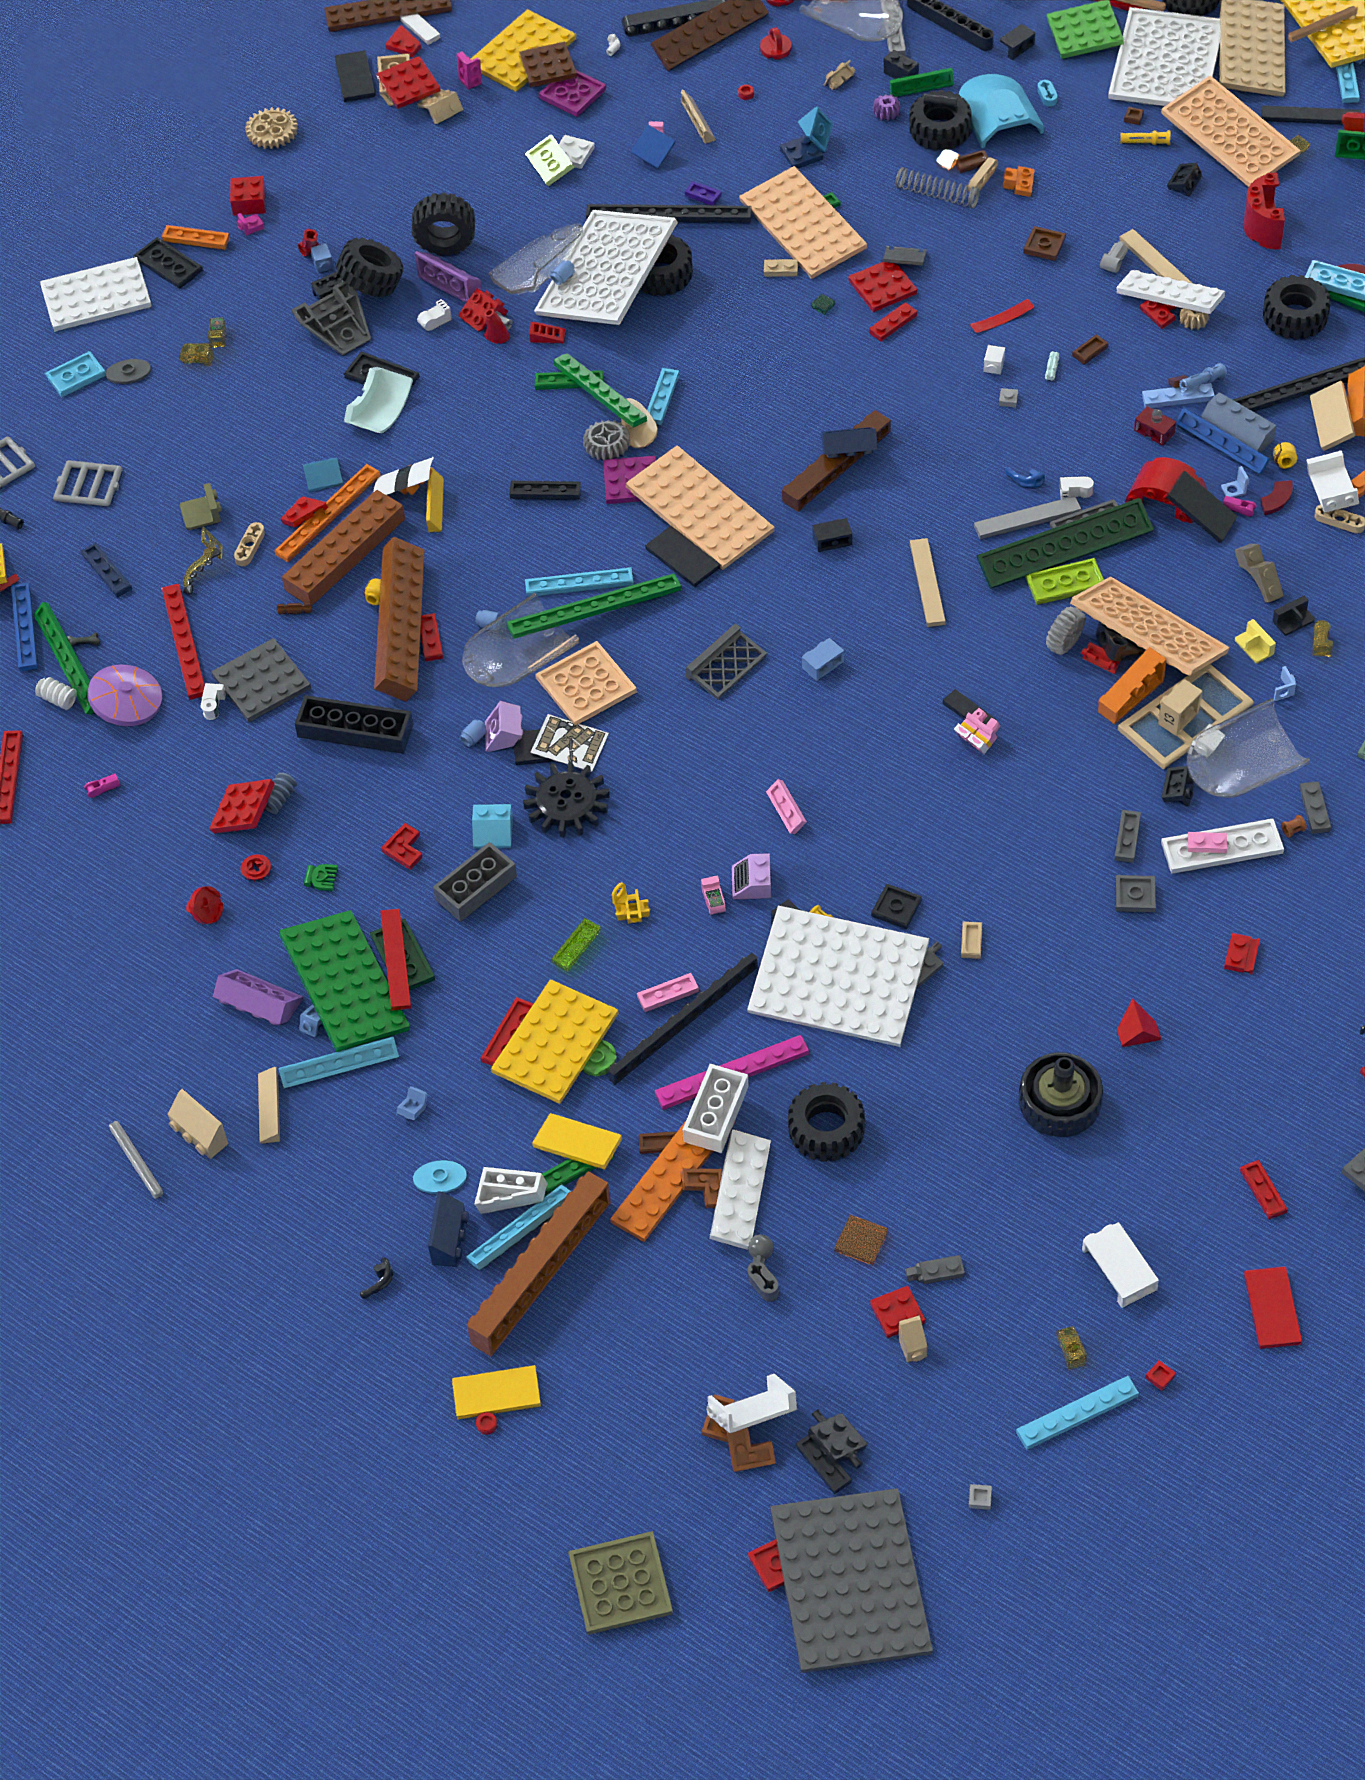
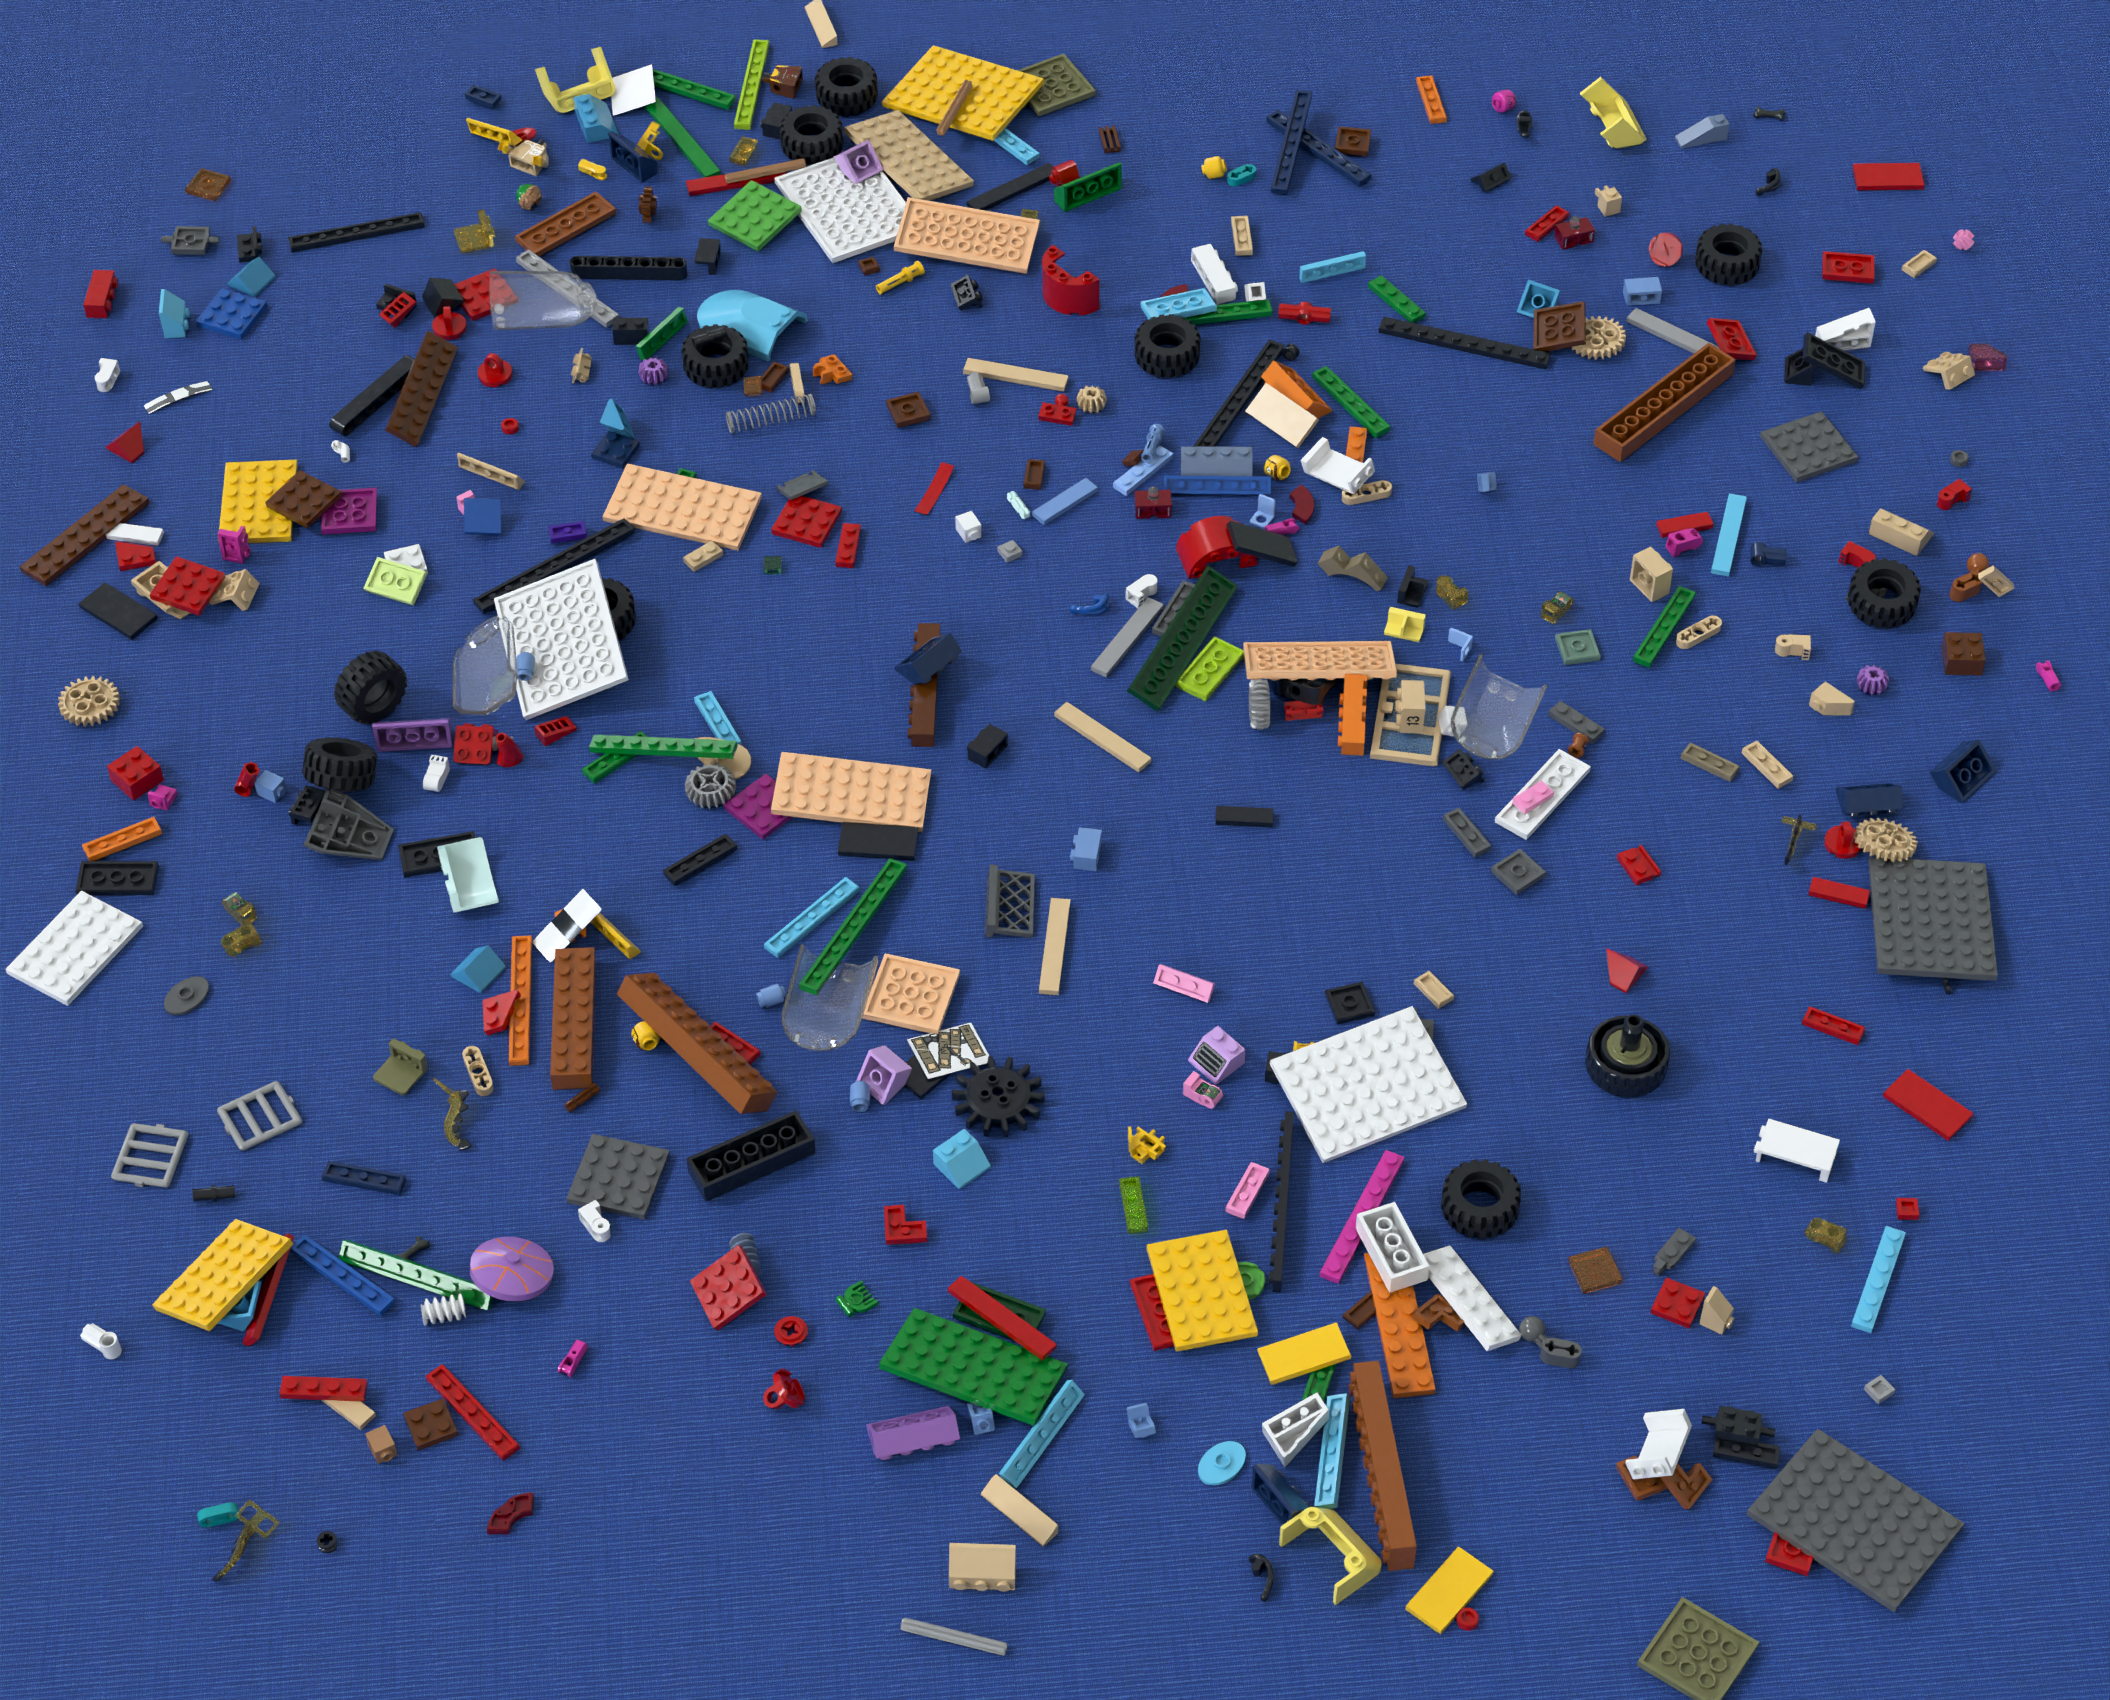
camera: 45 degrees left, 5 degrees down
(75, 374) = (136, 1029): medium azure tile -> none
(184, 641) = (509, 1190): red plate -> none
(451, 1321) = (1359, 1559): none -> light yellow windscreen
(475, 881) = (998, 1211): dark grey brick -> none
(724, 716) = (1054, 946): none -> tan tile
(976, 732) = (1280, 825): bright pink hips -> none
(1048, 96) = (777, 286): medium azure beam -> none
(1091, 384) = (1064, 501): none -> medium blue tile
(1170, 291) = (1056, 390): white plate -> none
(1203, 28) = (859, 162): none -> lavender slope

